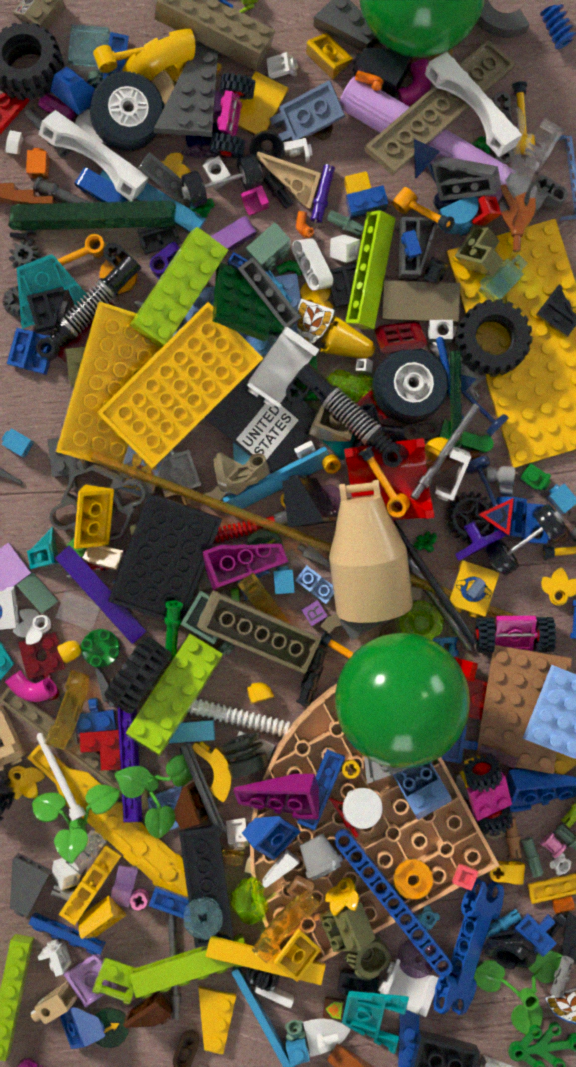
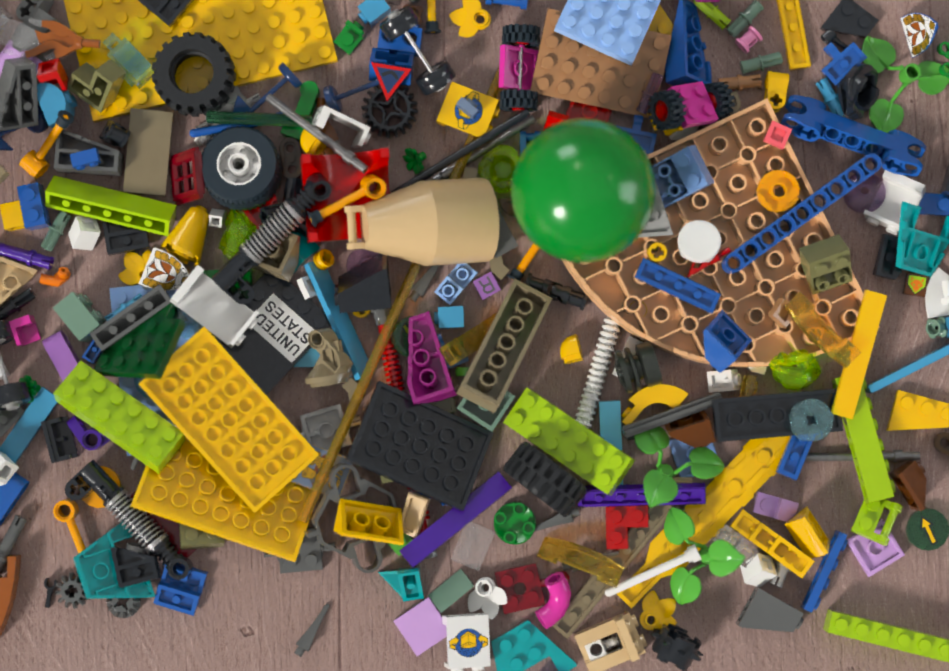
camera: 90 degrees left, 0 degrees up
(17, 442) = (282, 606): dark azure brick -> none
(54, 1003) = (898, 587): tan torso -> none
(58, 954) = (849, 579): white bracket -> none
(69, 650) = (515, 556): yellow piece -> none
(81, 1028) = (924, 560): blue slope -> none
(92, 215) = (32, 512): clear green beam -> none
(95, 719) = (593, 531): blue plate -> none
(145, 898) = (784, 494): bright pink bush -> none
(172, 621) = (489, 440): green pin -> none
(226, 647) = (519, 383): sand green plate -> none
(262, 979) = (879, 359): black gear -> none
(278, 996) = (897, 347): white tile -> none
(282, 866) = (756, 328): white slope -> none
(289, 265) = (100, 292): green arm -> none
(289, 794) = (681, 318): magenta wedge -> none
(297, 955) = (853, 319): yellow slope -> none
(312, 264) = (100, 269): white beam -> none
(319, 857) = (749, 289): light grey piece -> none
(340, 897) = (793, 267): yellow plate -> none
(370, 960) = (863, 243): olive helmet -> none
(428, 923) = (821, 172): medium azure plate -> none
(433, 334) = (184, 140): white brick -> none
(478, 541) = (416, 102): dark purple tile -> none
(504, 476) = (346, 71): light grey piece -> none
(561, 976) = (889, 38): light grey pin -> none
(563, 901) = (808, 34): orange piece -> none
(564, 867) = (773, 29): white plate -> none

